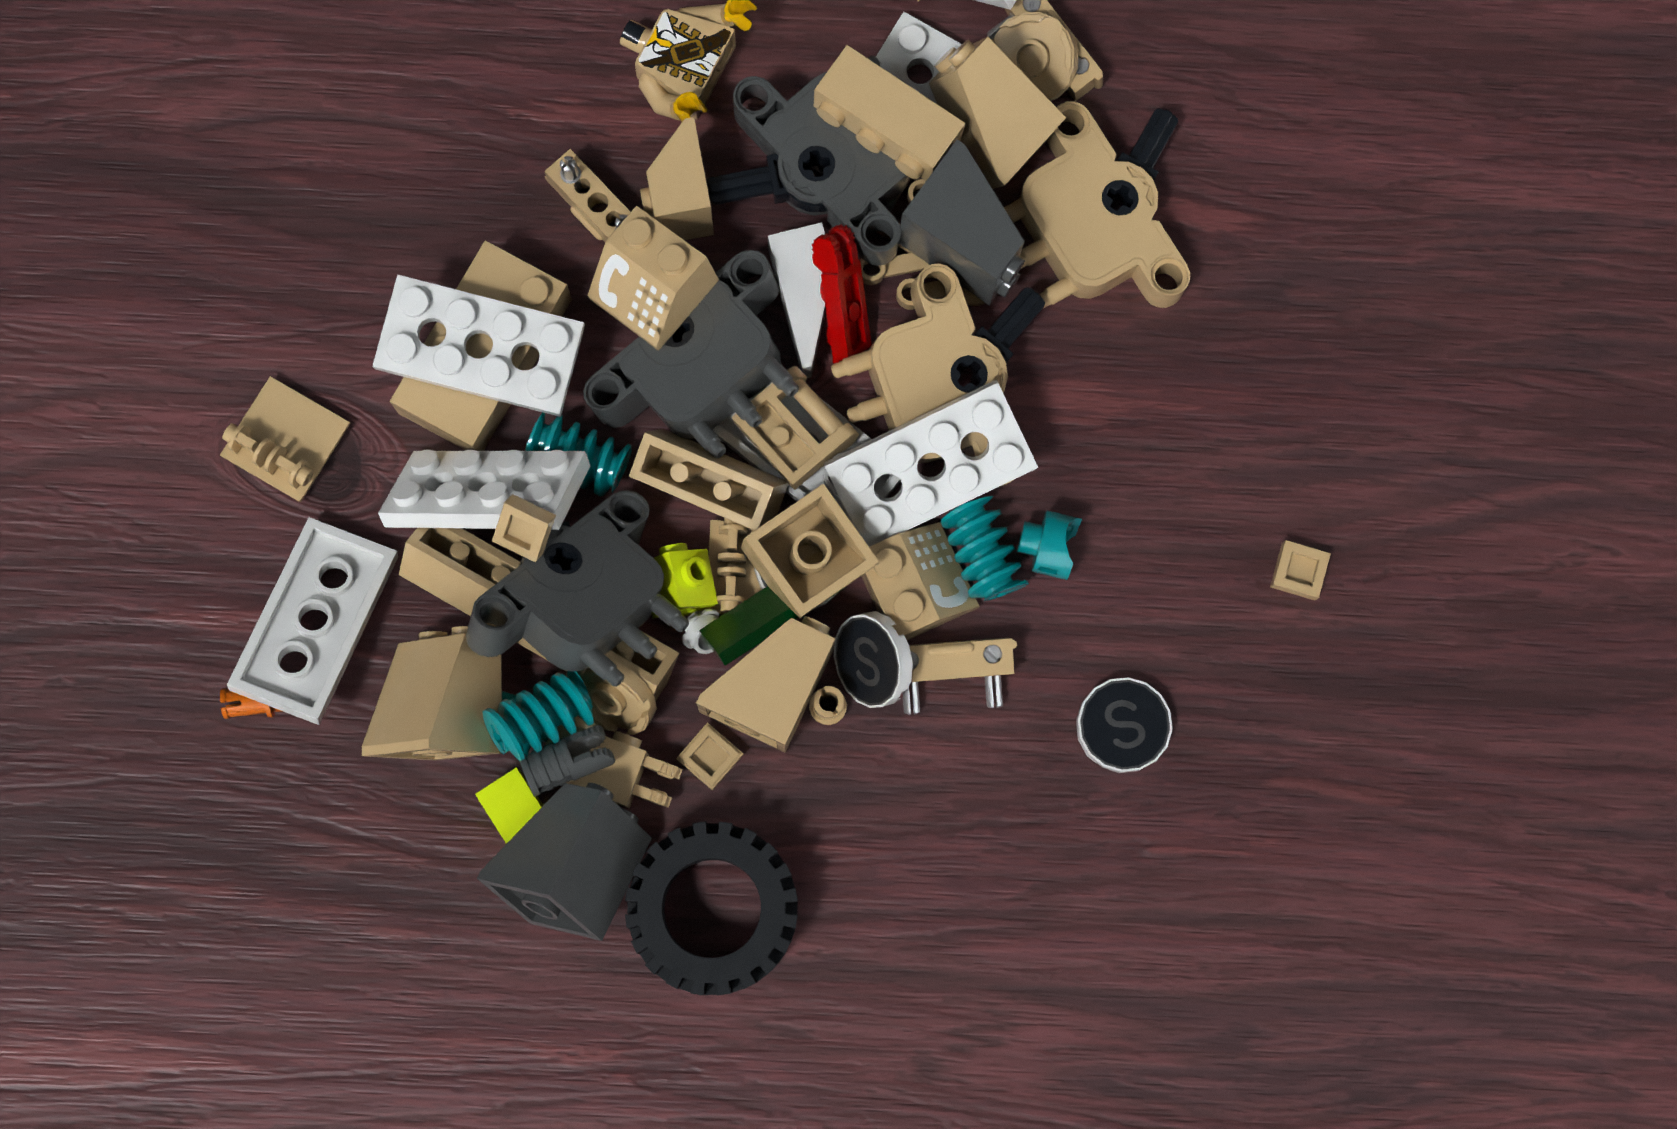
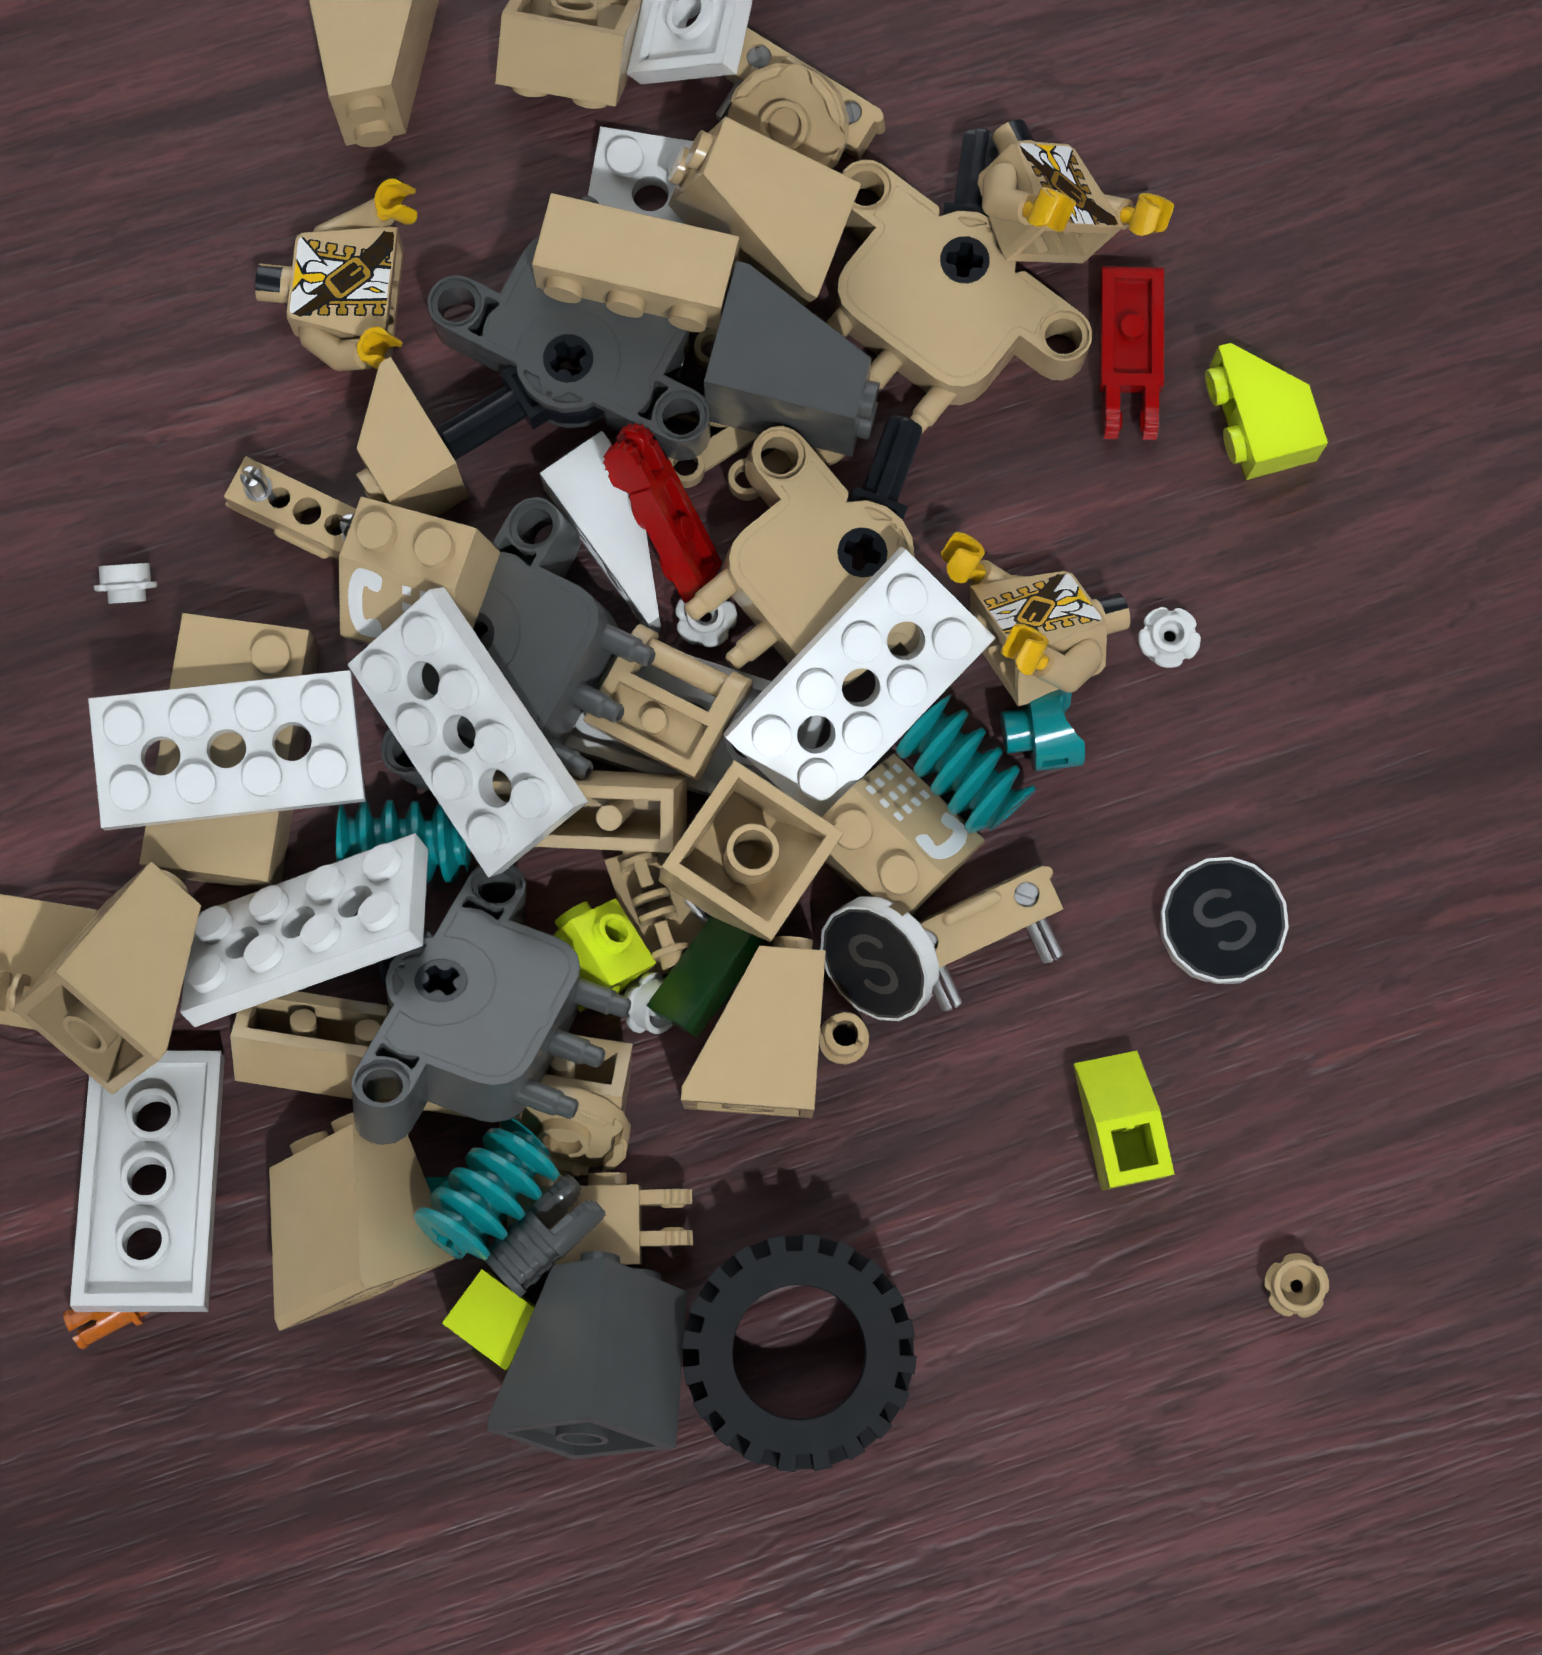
camera: 15 degrees left, 0 degrees up
(345, 475) = (119, 980): none -> tan slope
(455, 205) = (125, 582): none -> white plate
(523, 528) = (377, 961): tan tile -> none
(672, 402) = (504, 730): none -> white plate
(710, 756) = (719, 1159): tan tile -> none
(844, 390) = (707, 633): none -> white plate
(998, 836) = (1123, 1121): none -> neon yellow slope
(1074, 471) = (1042, 623): none -> torso
(1089, 995) = (1314, 1286): none -> tan plate
(1150, 513) = (1167, 653): none -> white plate
(1195, 181) = (1051, 206): none -> torso
(1215, 300) = (1131, 344): none -> red hinge
(1292, 383) = (1267, 413): none -> neon yellow slope
(1300, 570) = (1366, 643): tan tile -> none

